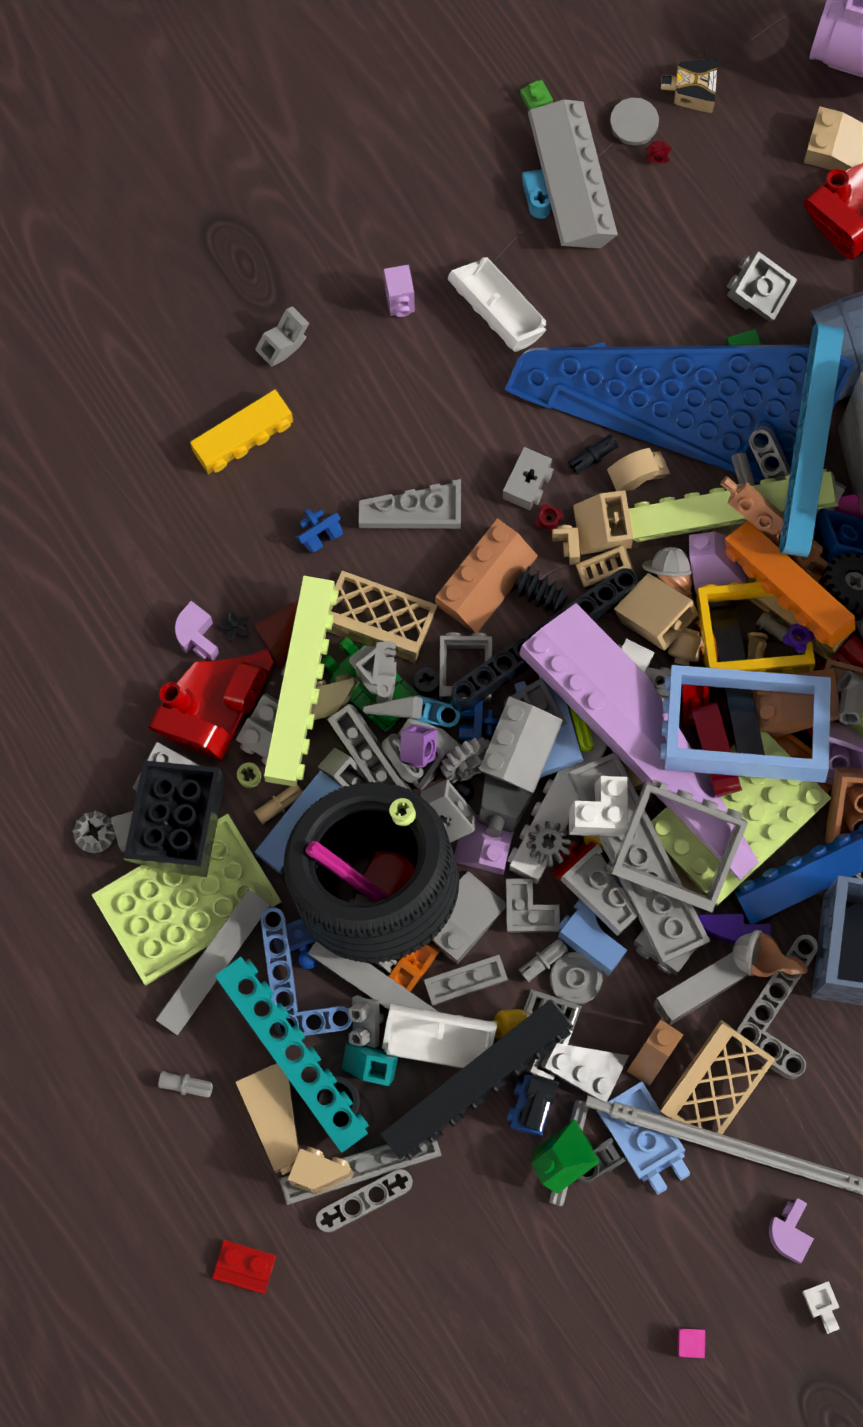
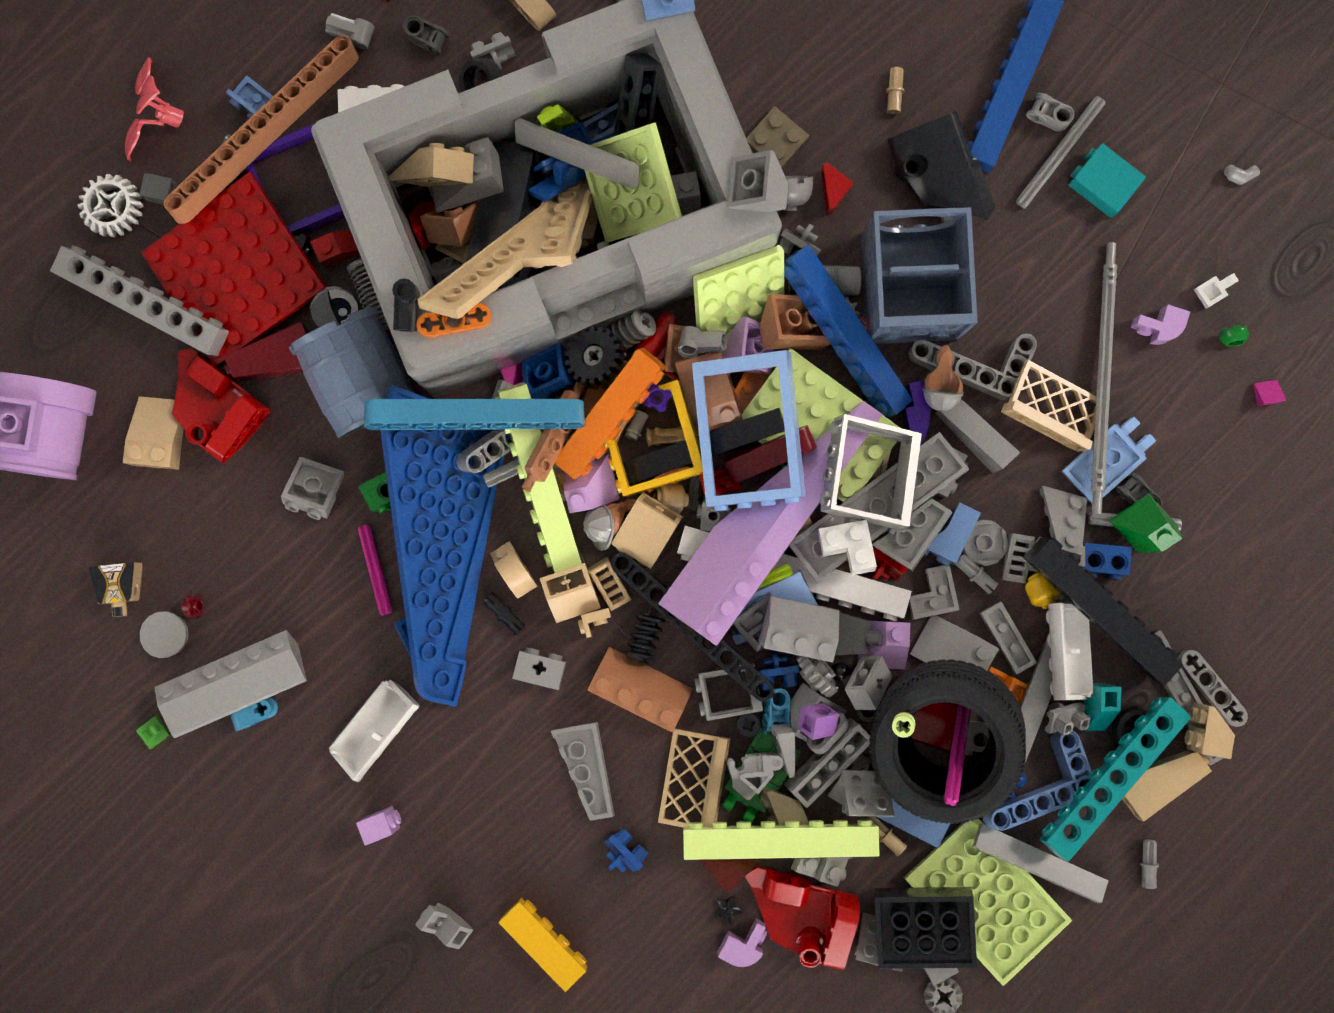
camera: 105 degrees left, 10 degrees up
(244, 1267) = (1289, 779): red plate -> none
(252, 783) = (867, 873): yellowish green bush -> none
(326, 775) = (865, 795): none -> light grey hinge
(540, 1097) = (1103, 554): black piece -> none
(545, 511) = (567, 647): dark red plate -> none
(546, 853) = (882, 596): dark grey gear -> none
(654, 1053) = (1038, 461): medium nougat slope -> none
(664, 334) = (375, 570): none -> dark pink axle
(764, 1313) = (1235, 336): none -> green plate

